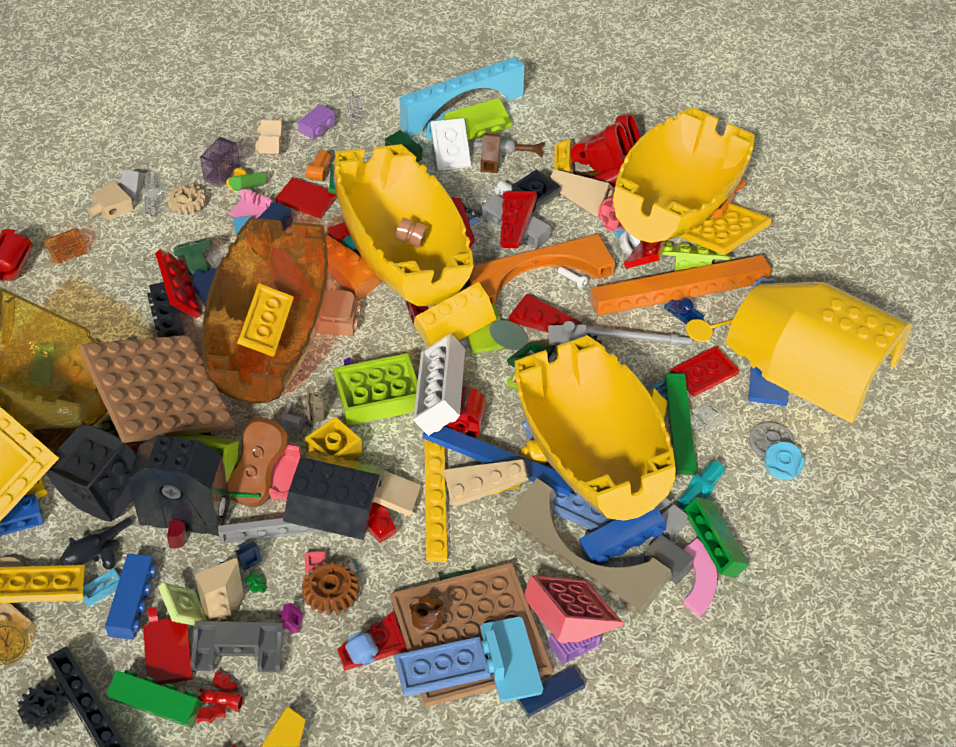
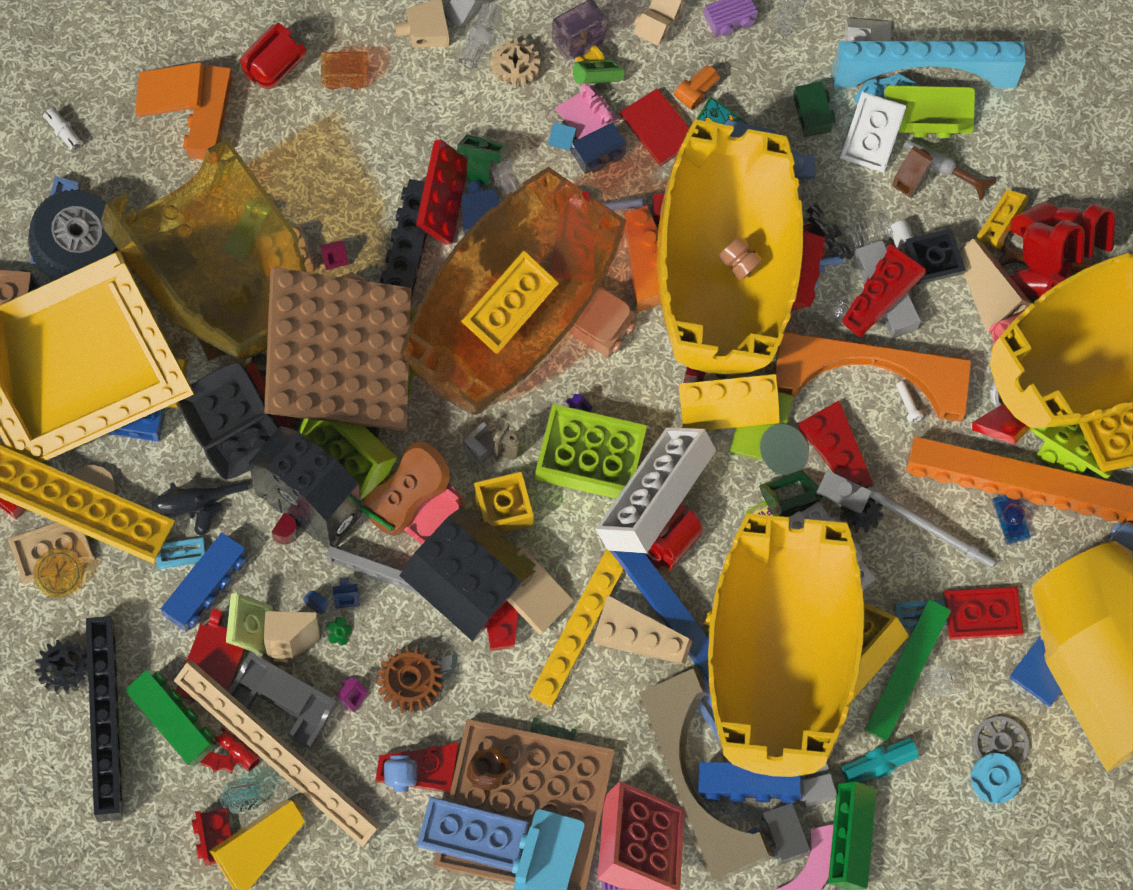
camera: 25 degrees right, 20 degrees up
(241, 729) = (239, 795): none -> clear light blue head
(255, 682) = (277, 753): none -> tan plate
(314, 558) = (412, 636): coral tile -> none
(701, 330) = (1013, 556): yellow piece -> none

